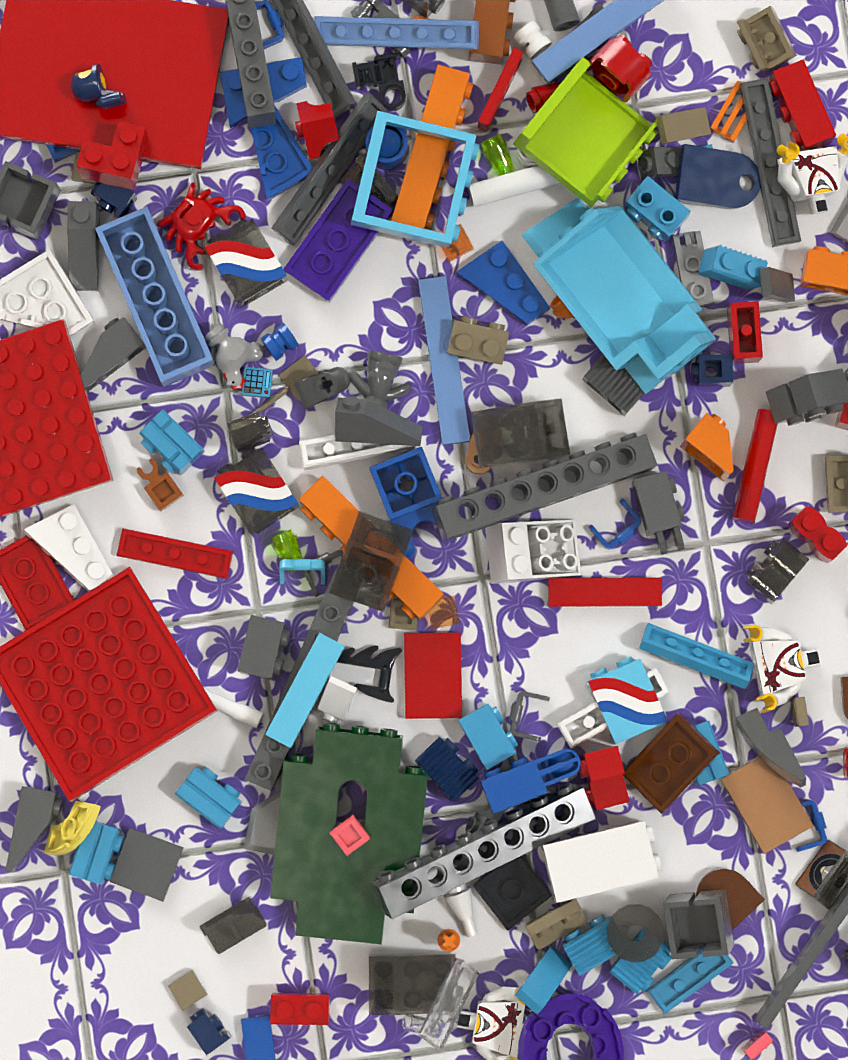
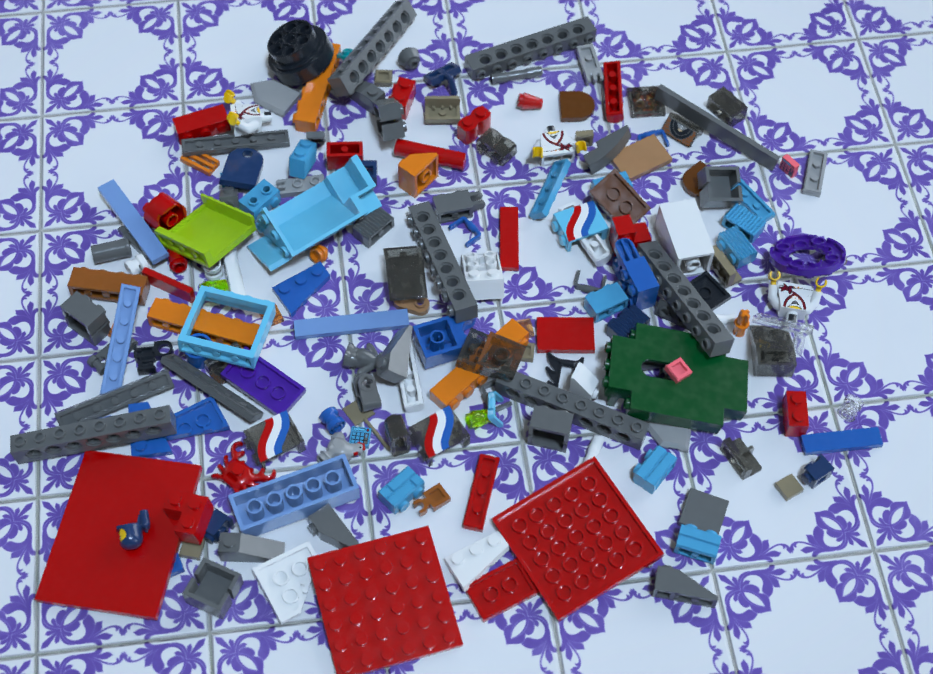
camera: 90 degrees left, 25 degrees down
(73, 830) = (683, 554): light yellow tile -> none
(305, 690) = (580, 397): medium azure tile -> none
(316, 126) = (181, 390): red brick -> none
(478, 341) = (340, 299): dark tan bracket -> none
(543, 980) = (763, 267): dark azure tile -> none
(652, 933) = (725, 227): clear smoke tile -> none
(683, 125) = (206, 183): dark tan tile -> none
(766, 40) = (155, 140): dark tan bracket -> none

